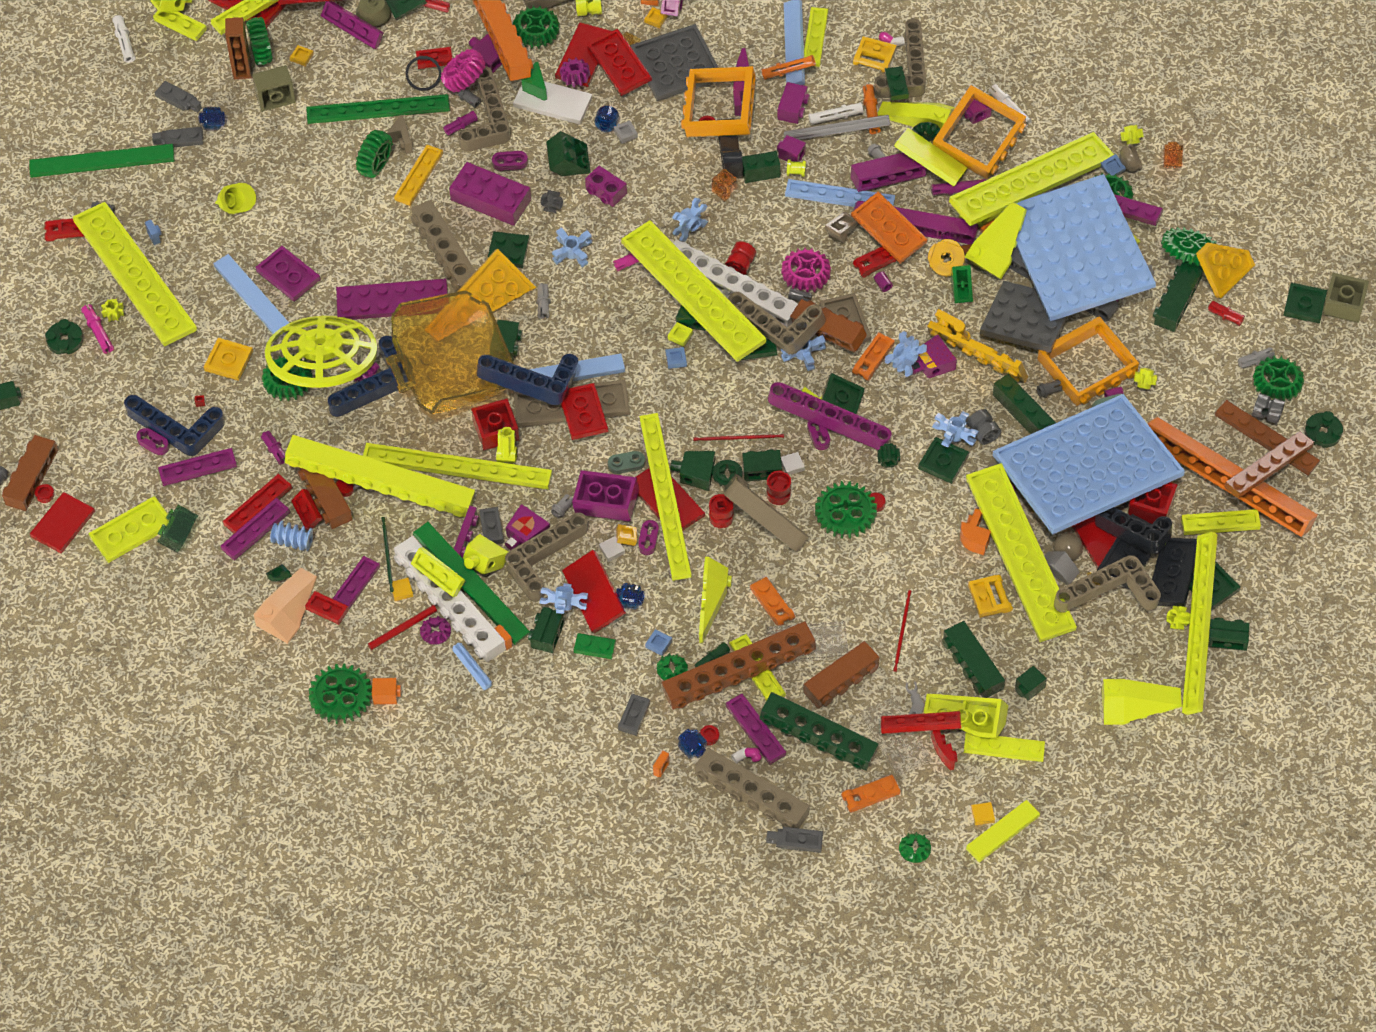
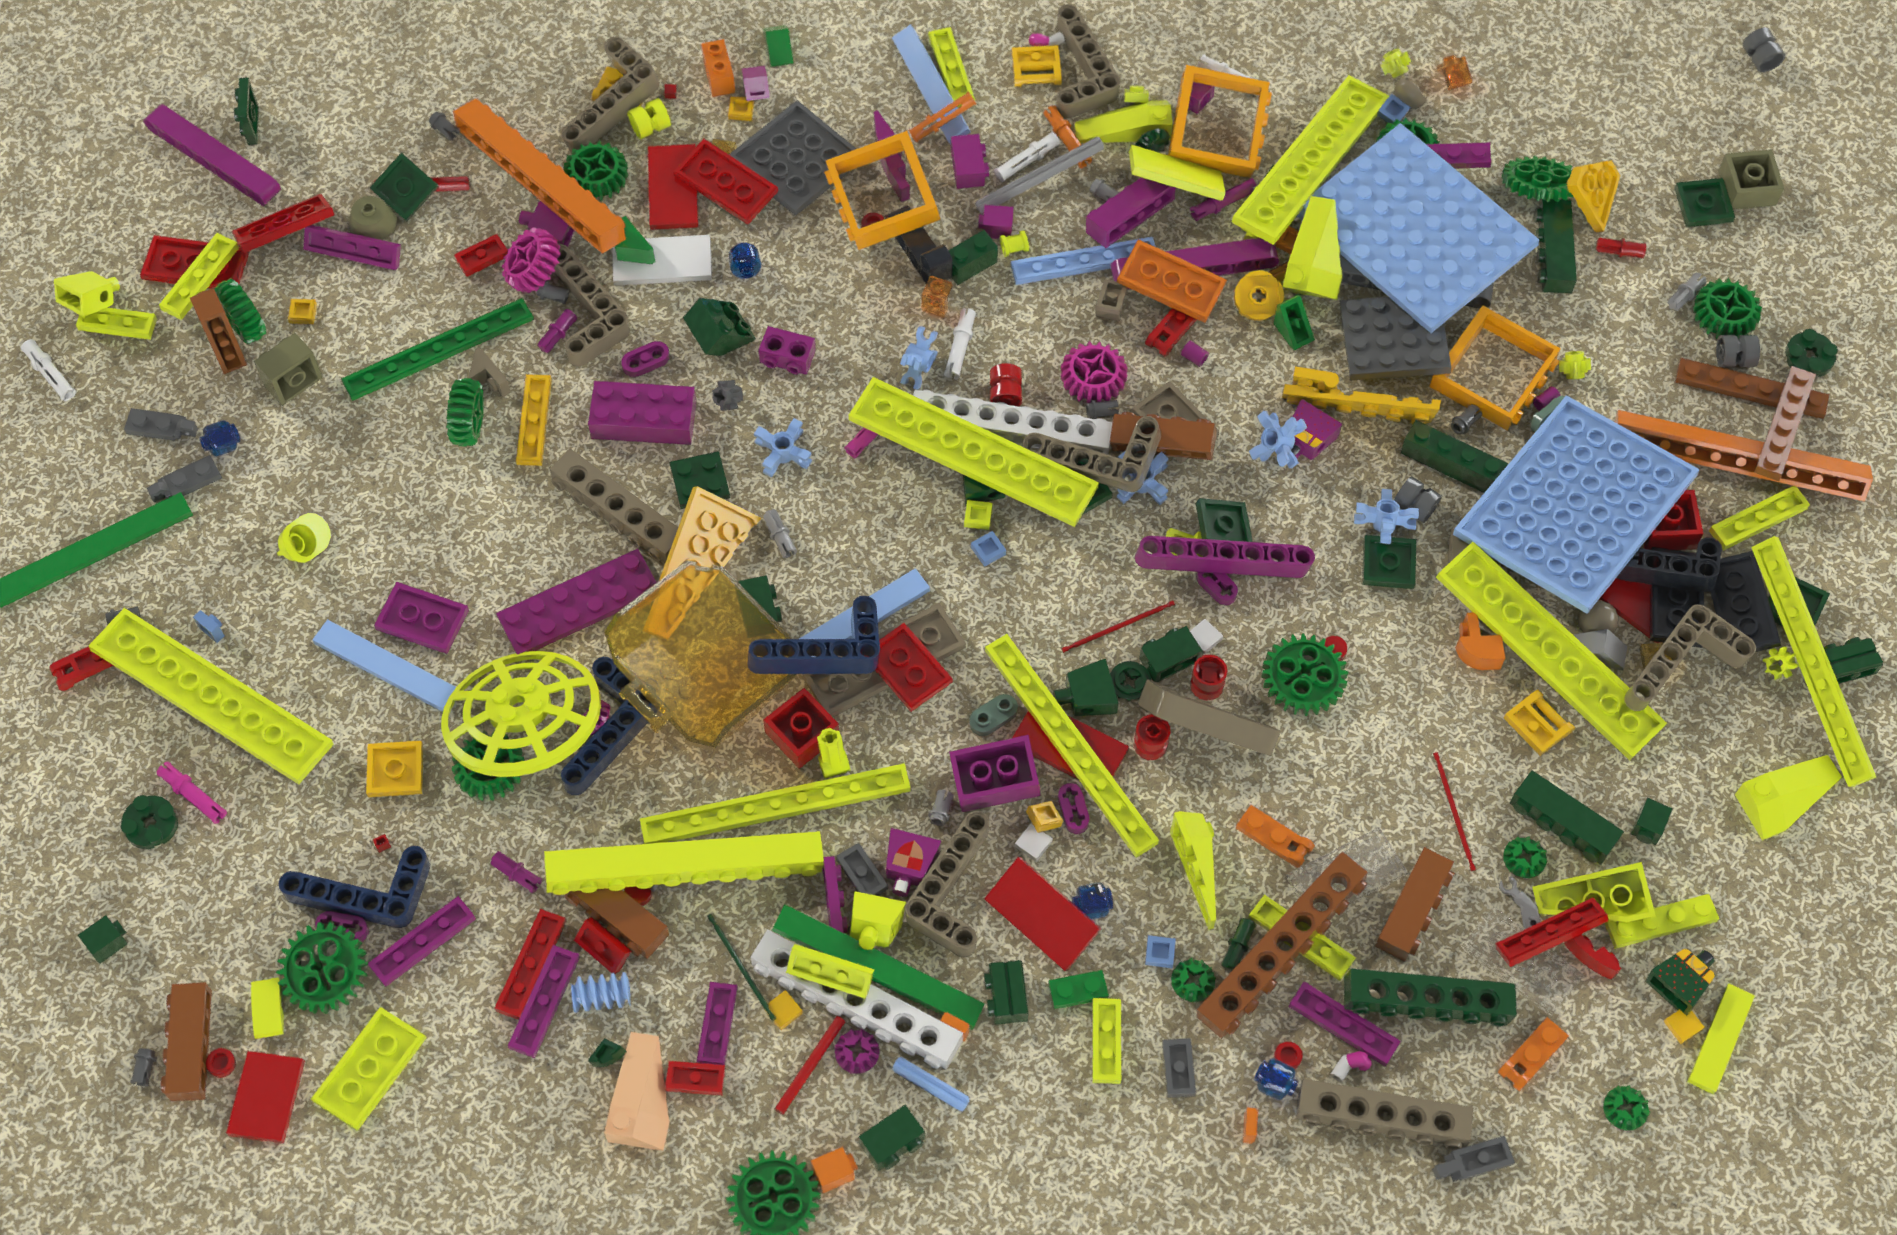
camera: 25 degrees left, 5 degrees up
(85, 471) = (267, 1008): none -> neon yellow slope
(112, 309) = (201, 764): neon yellow gear -> none
(113, 459) = (298, 977): none -> green gear
(177, 528) = (435, 1044): clear green brick -> none
(418, 58) = (476, 303): black piece -> none
(430, 686) = (892, 1138): none -> dark green brick
(563, 598) = (1012, 941): light blue pin -> none
(574, 72) = (676, 213): magenta gear -> none
(596, 681) = (1106, 1041): none -> neon yellow plate
(625, 132) = (776, 270): light grey plate -> none
(730, 215) = (962, 335): none -> white pin
(873, 356) = (1233, 455): orange plate -> none
(888, 455) = (1321, 581): dark green gear -> none
(896, 83) = (1087, 93): dark green plate -> none
(925, 676) = (1519, 866): none -> green gear
(934, 96) = (1136, 94): none -> neon yellow plate
(996, 784) = (1682, 978): none -> dark green torso

